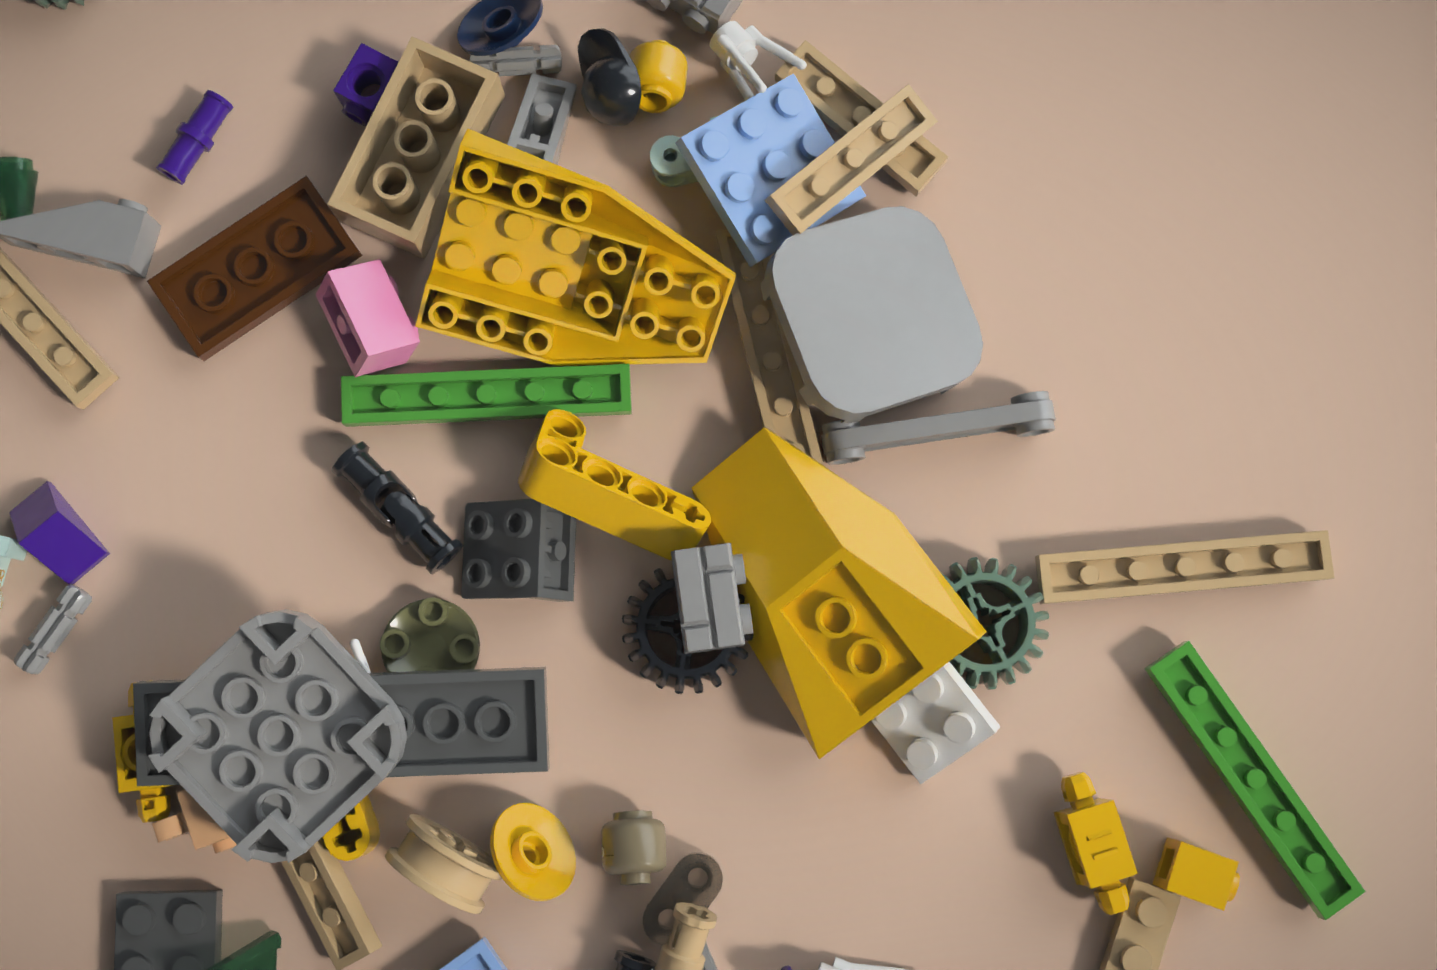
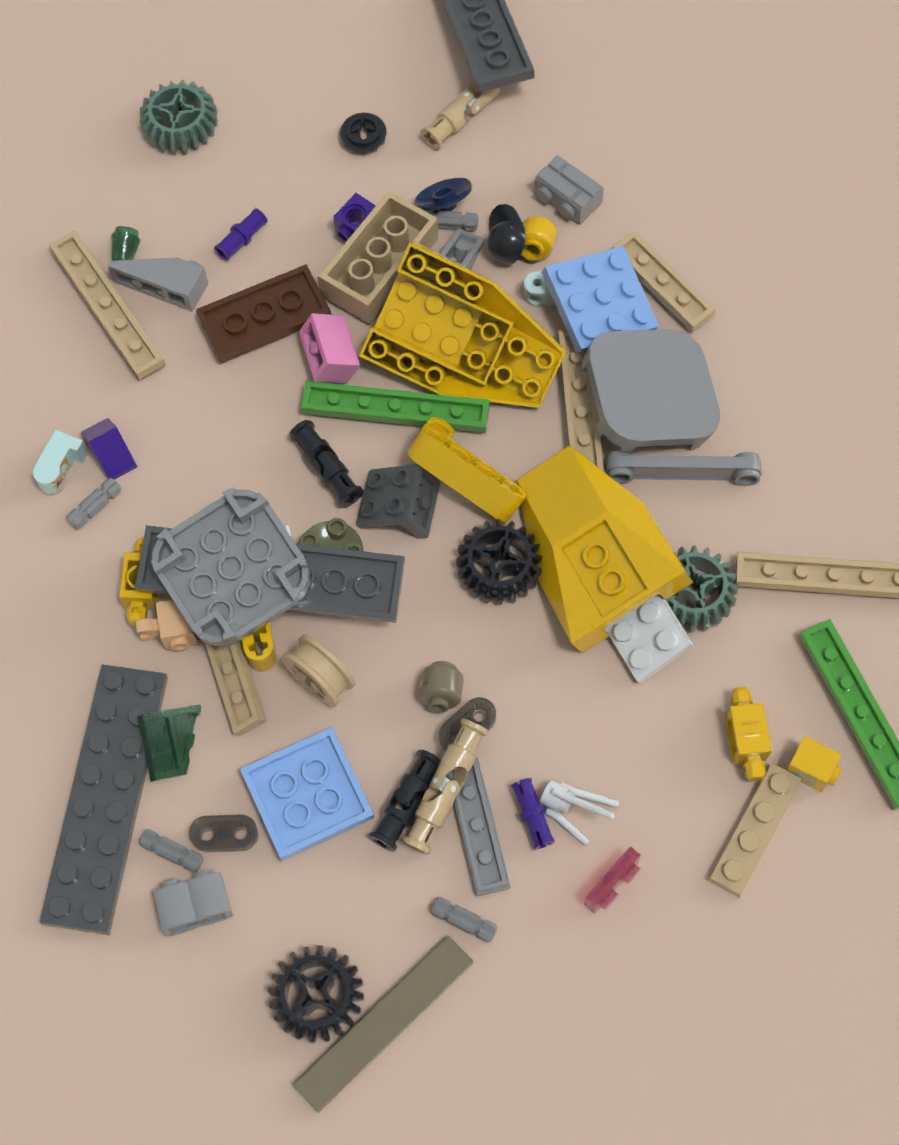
camera: 15 degrees right, 15 degrees down
(533, 852) = (375, 677): yellow dish -> none
(709, 598) = (516, 535): light grey brick -> none
(738, 52) = (591, 232): white plant -> none
(851, 160) = (651, 297): tan plate -> none

